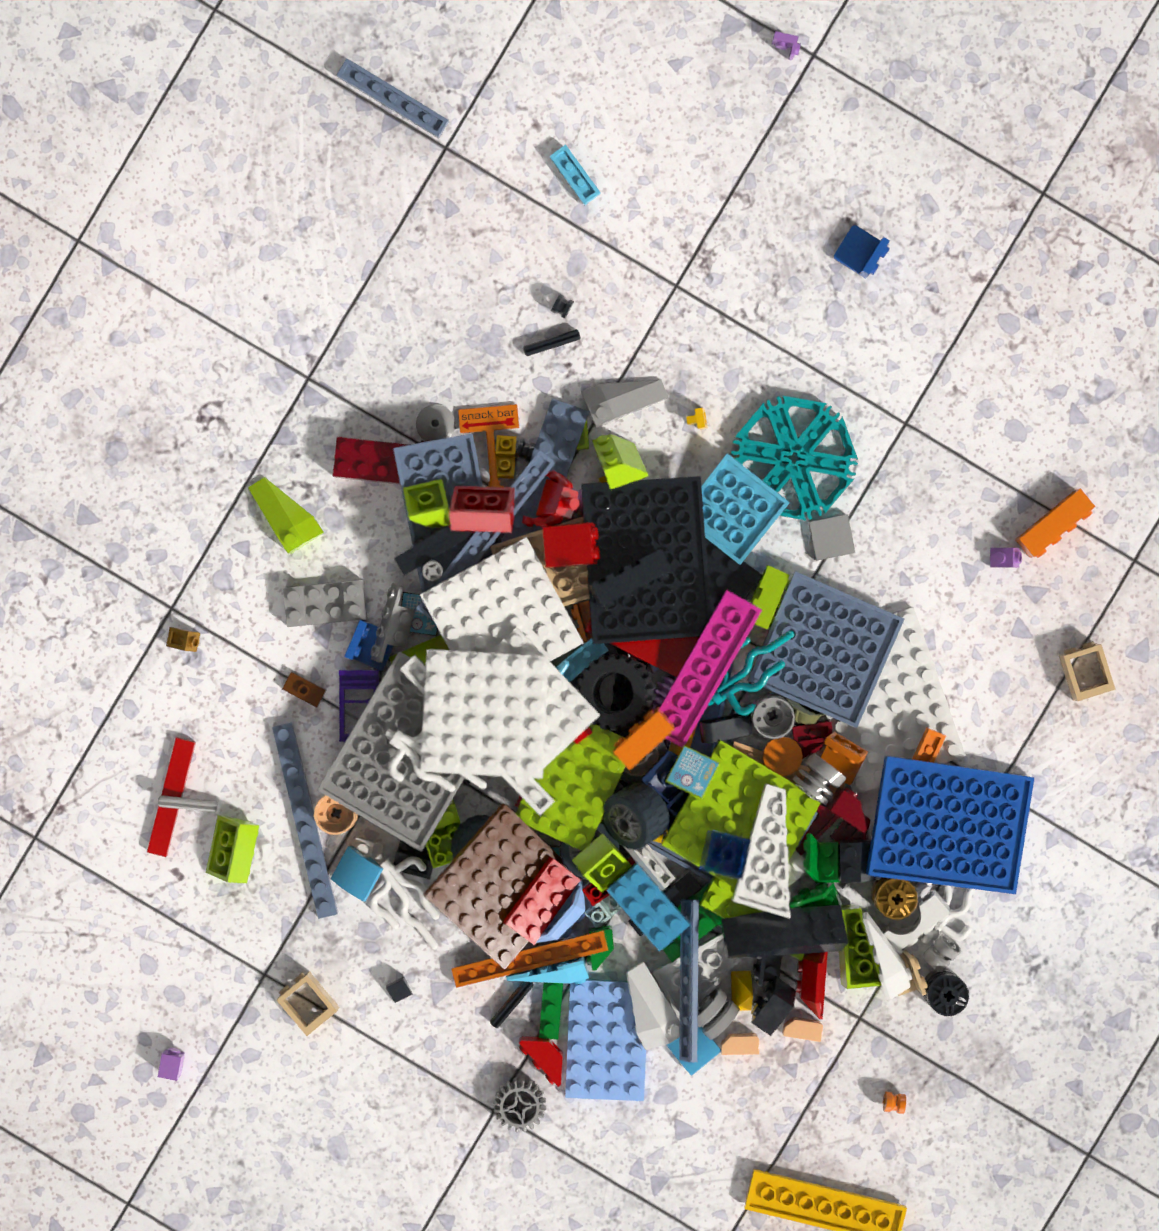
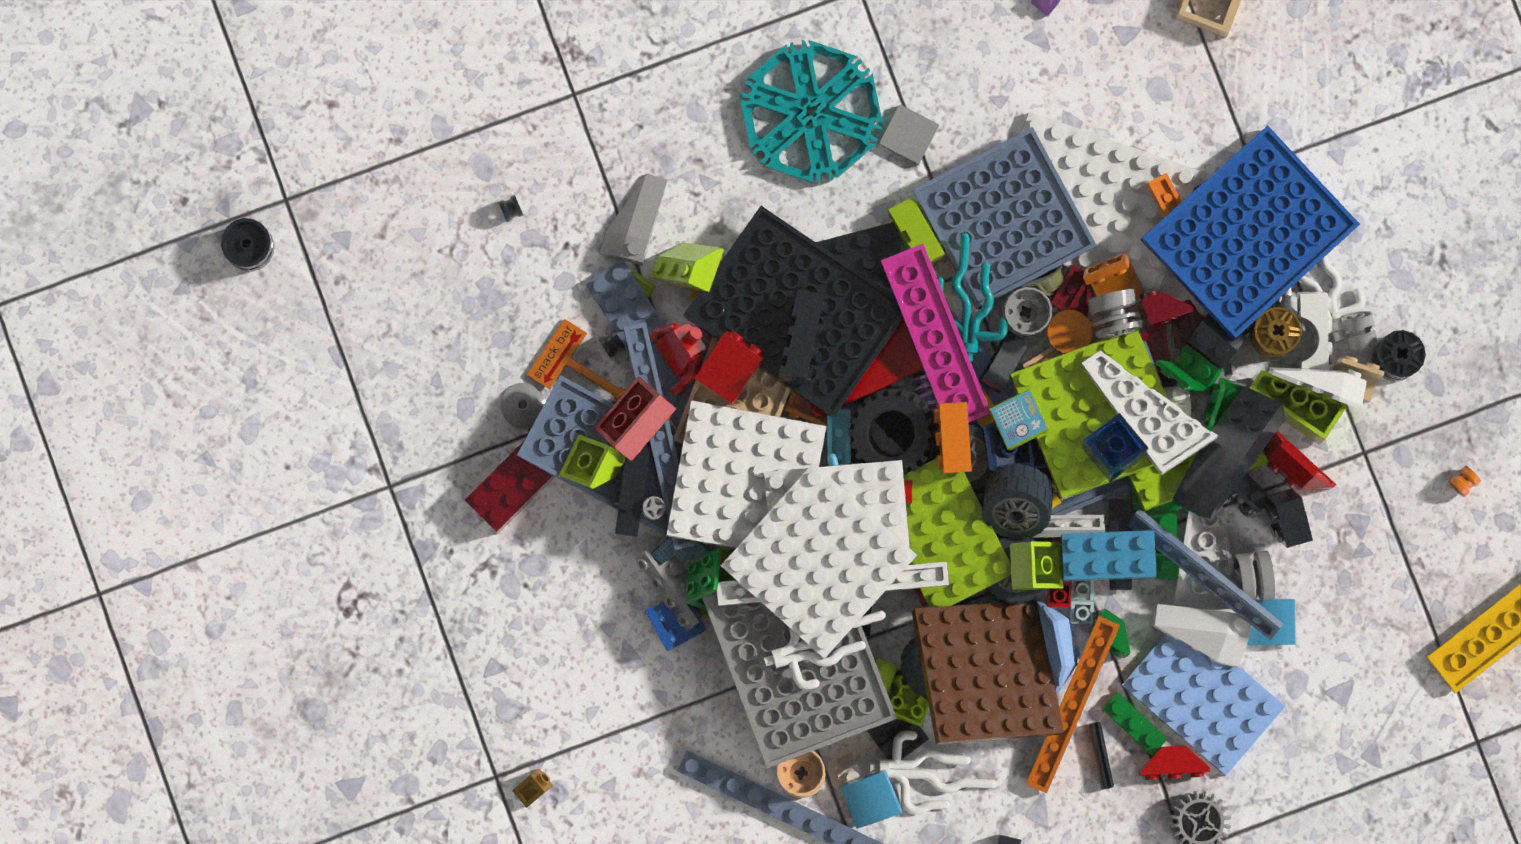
camera: 55 degrees left, 5 degrees down
(286, 517) = (503, 605): lime wedge -> none
(304, 689) = (666, 714): reddish brown plate -> none
(324, 603) = (604, 632): light grey piece -> none
(355, 693) = (709, 670): door -> none
(381, 146) = (254, 256): none -> black wheel
(392, 98) = (204, 211): sand blue plate -> none
(412, 642) = (703, 578): none -> green bracket
(505, 456) = (601, 364): yellow slope -> none
(541, 900) = (1028, 648): plate -> none
(551, 342) = (535, 243): black axle -> none
(562, 972) = (1108, 683): medium azure wedge -> none
(575, 175) = (403, 105): medium azure plate -> none
(699, 419) = (708, 168): yellow tile -> none
(738, 508) = (816, 195): medium azure plate -> none
(740, 1044) = (1302, 577): light nougat piece -> none
(742, 989) = (1253, 536): yellow slope -> none
(803, 1029) = (1333, 510): light nougat piece -> none

